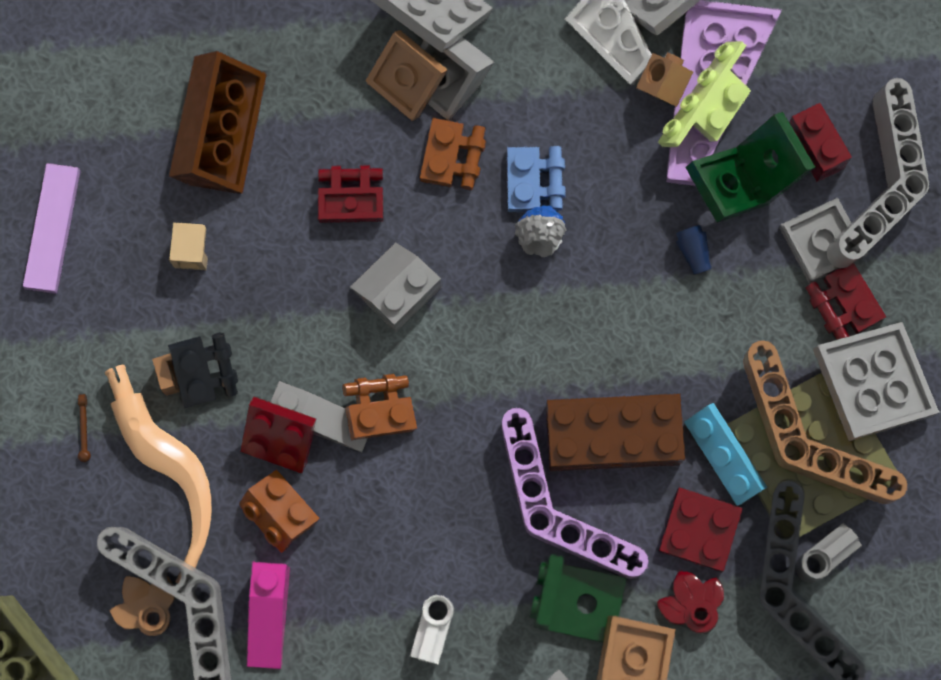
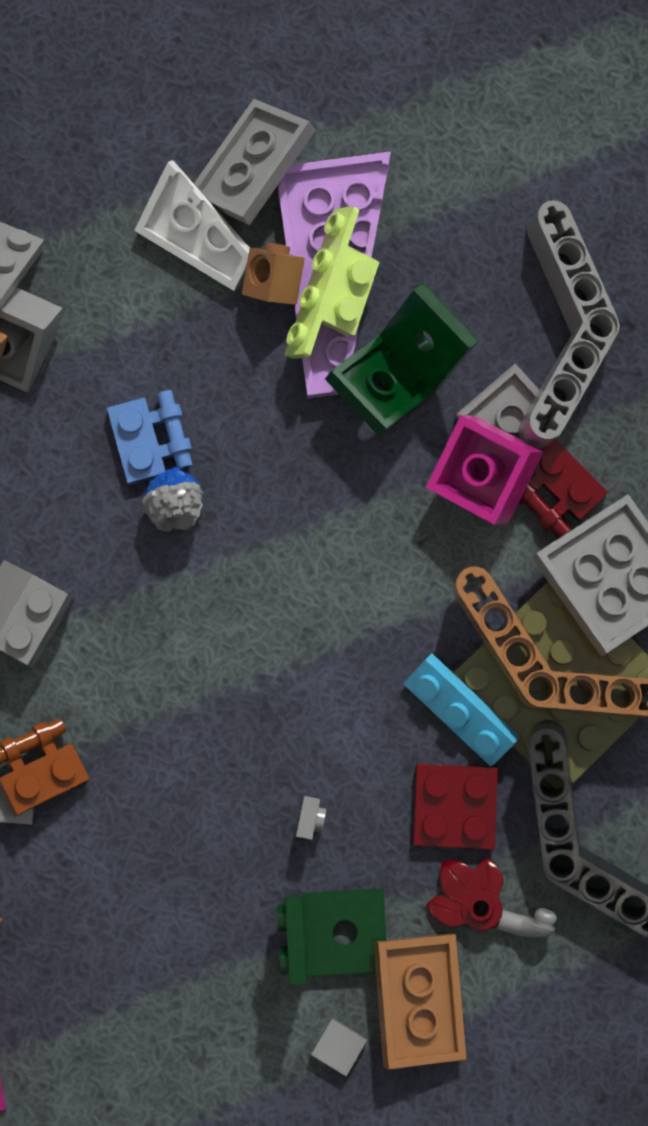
camera: 20 degrees left, 5 degrees up
(432, 633) = (172, 1016): white piece -> none
(442, 153) = (31, 435): dark orange plate -> none
(557, 520) = (262, 829): lavender beam -> none
(584, 504) = (311, 818): none -> light grey plate
(615, 432) = (324, 720): reddish brown brick -> none
(694, 248) = (362, 471): dark blue cone -> none
(734, 641) = (539, 927): none -> light grey arm
(793, 270) = (484, 469): none -> dark pink brick
(820, 141) = (475, 302): dark red brick -> none
(828, 552) = (611, 792): light grey piece -> none

